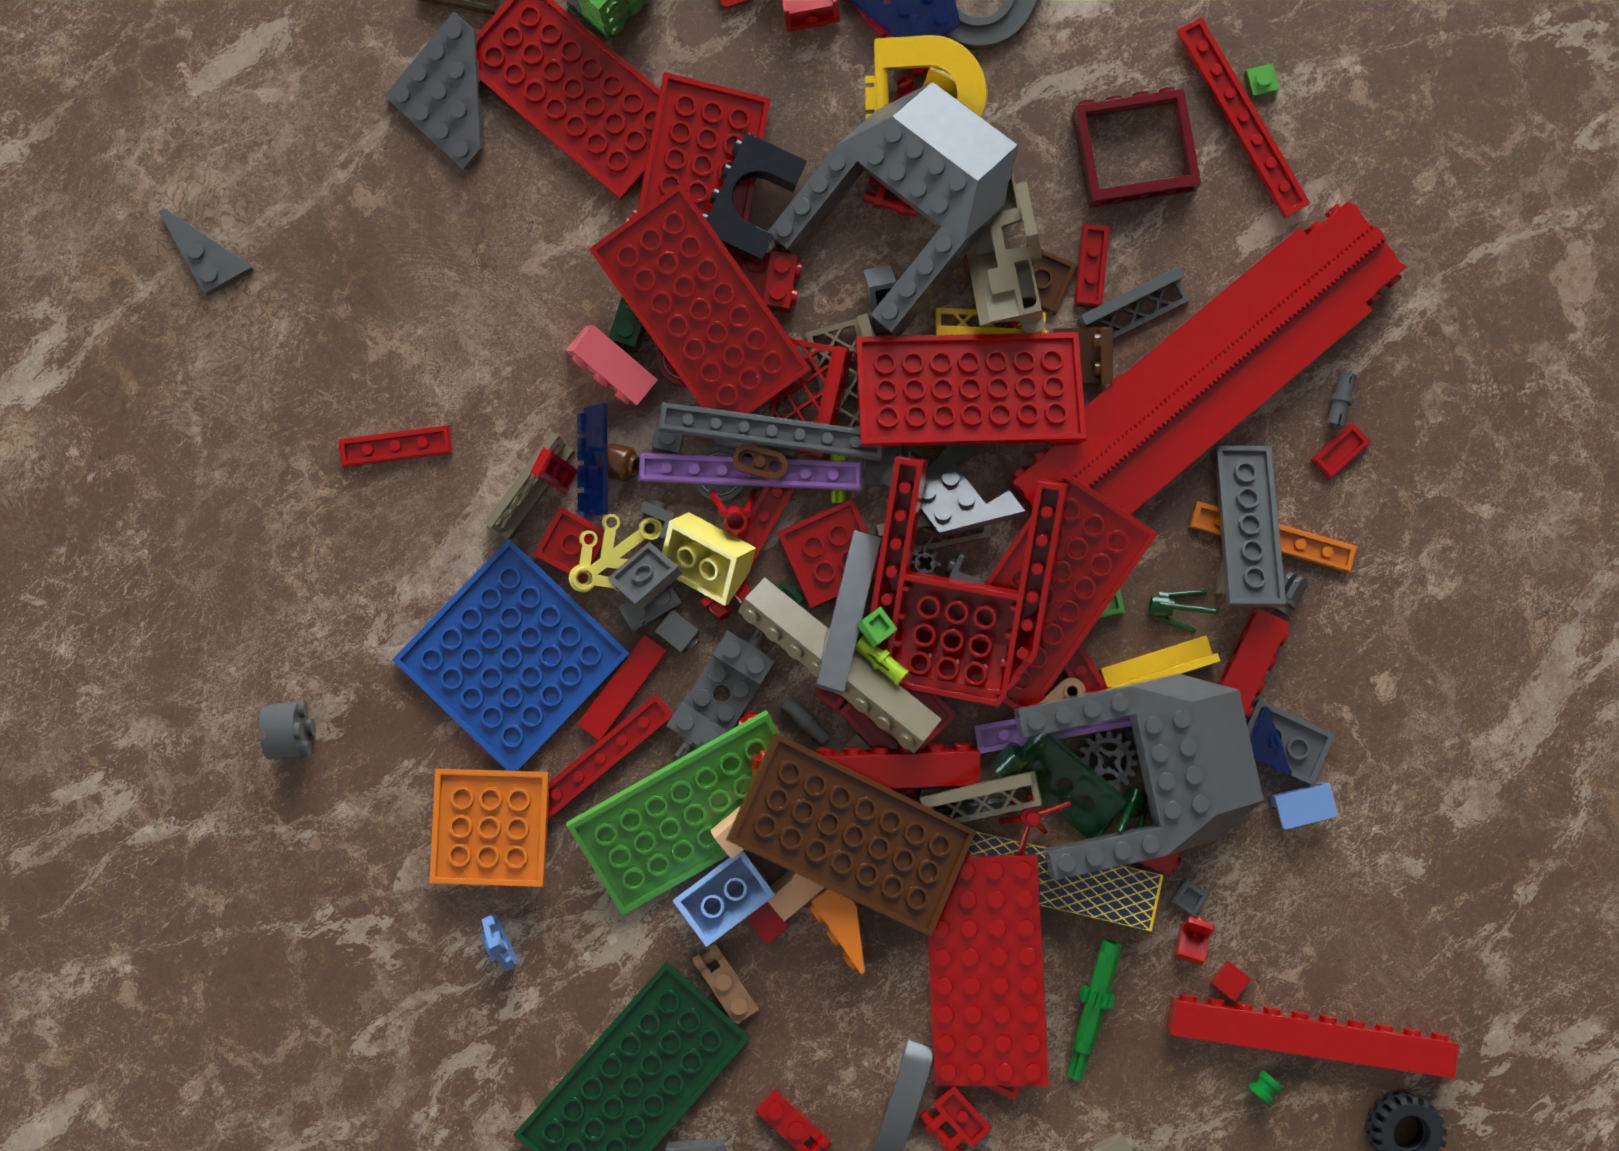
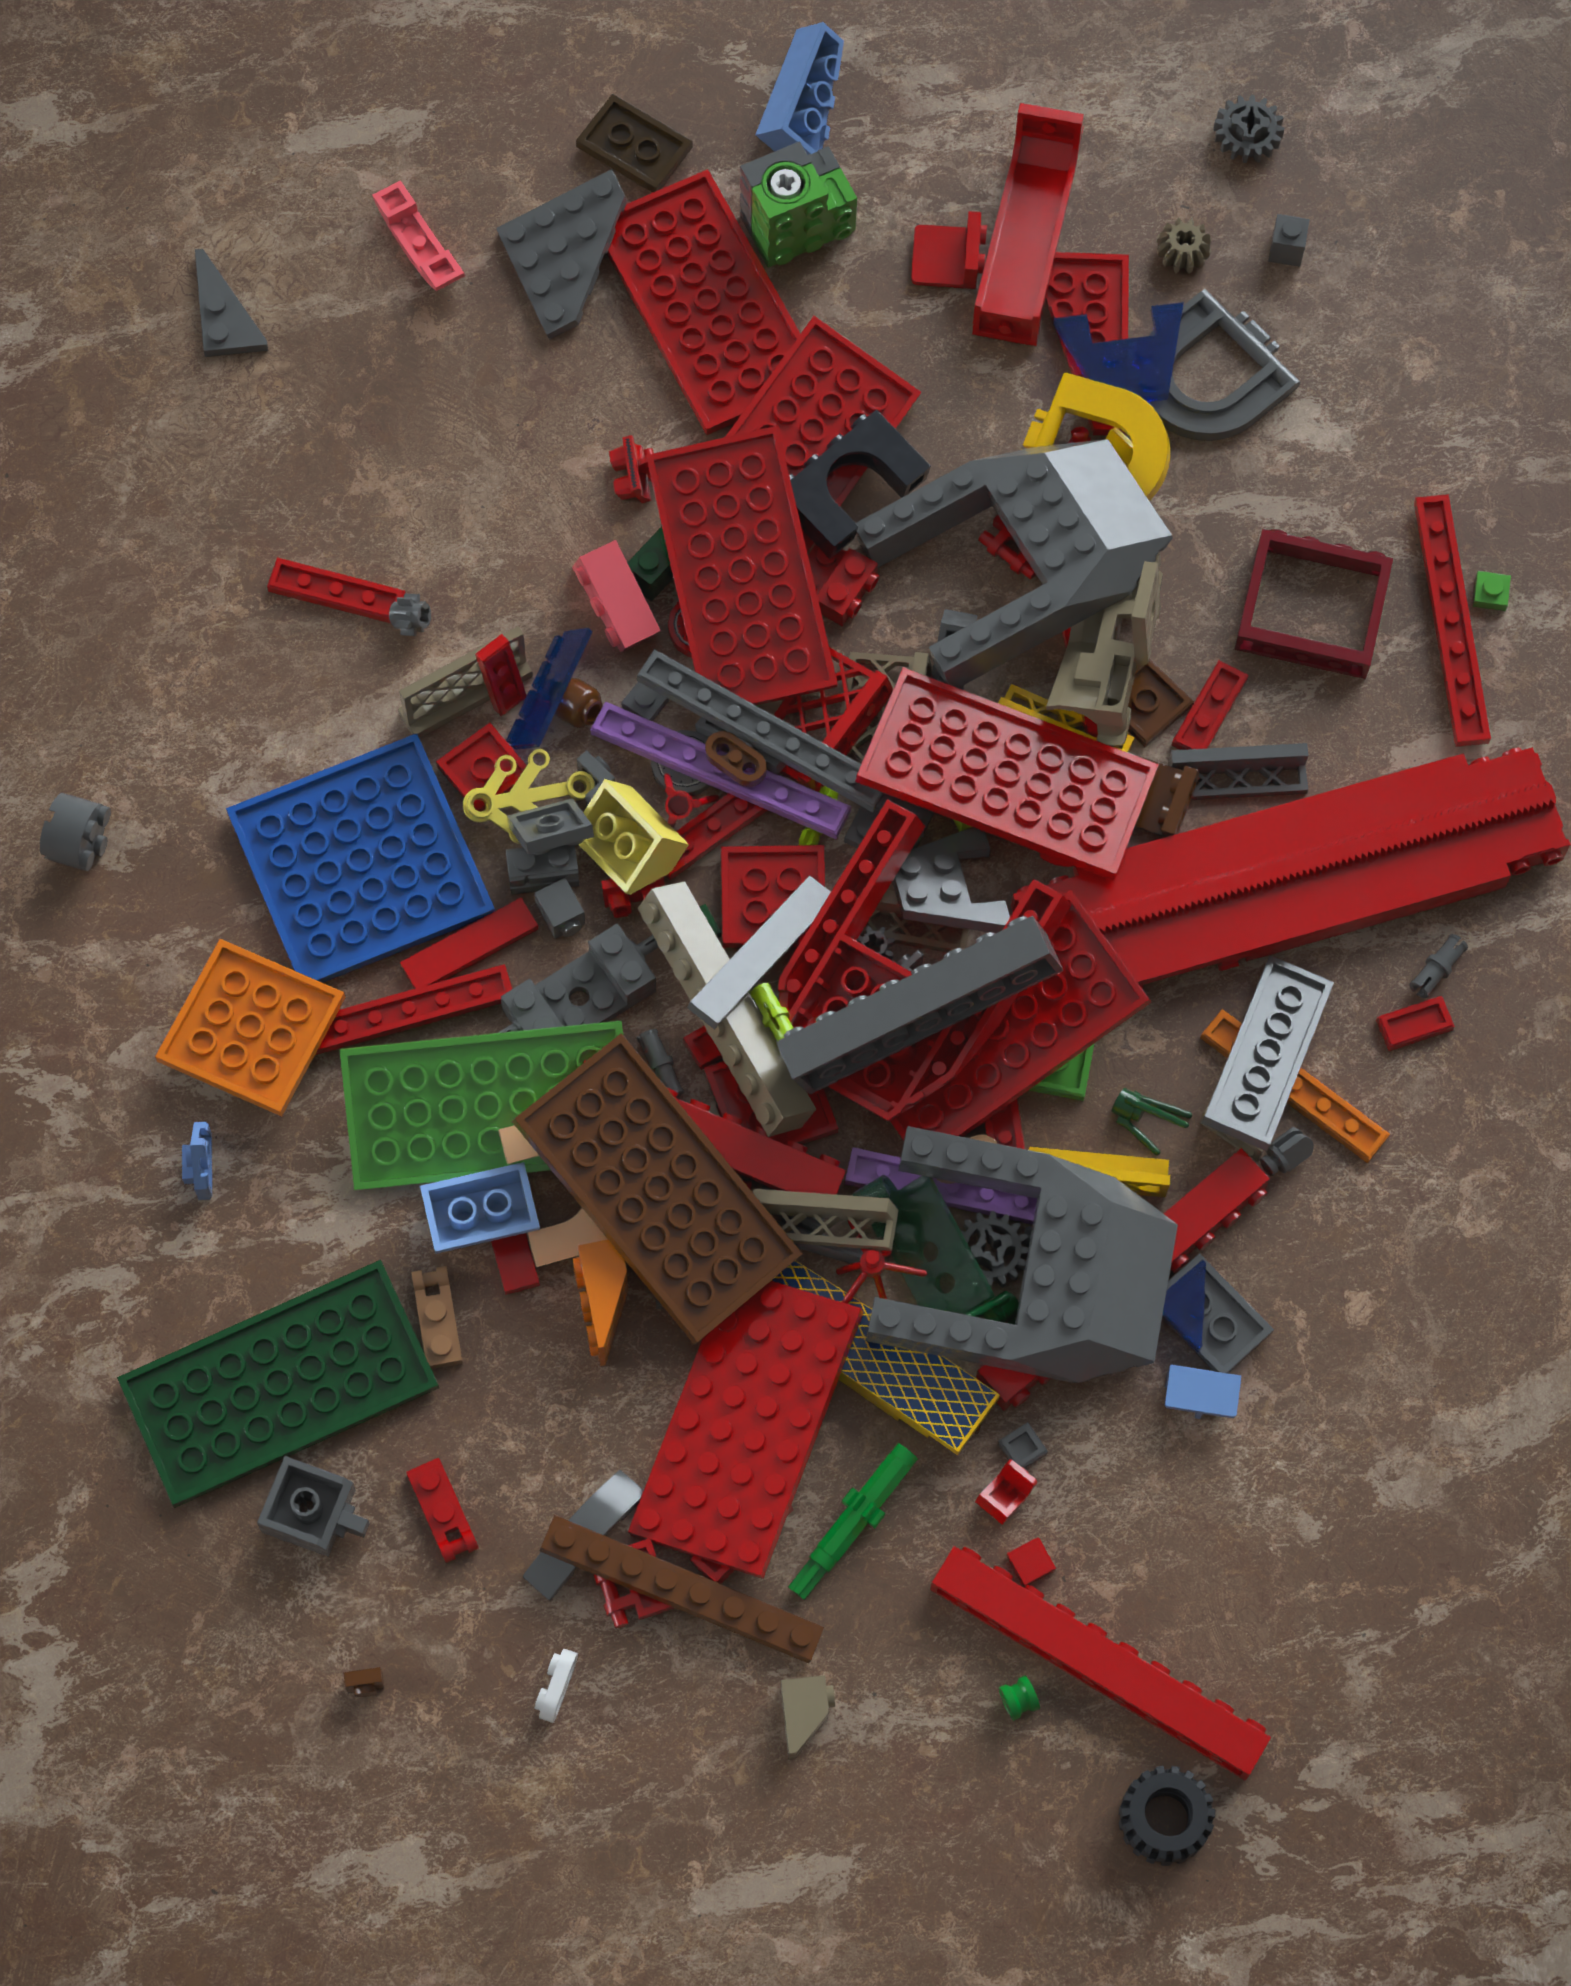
camera: 25 degrees right, 15 degrees down
(326, 129) = (416, 237): none -> coral slope
(461, 445) = (410, 614): none -> dark grey gear
(579, 246) = (632, 458): none -> red hips
(876, 626) = (786, 977): bright green plate -> none
(992, 1115) = (681, 1589): none -> reddish brown plate
(999, 612) = (919, 1004): none -> dark grey brick

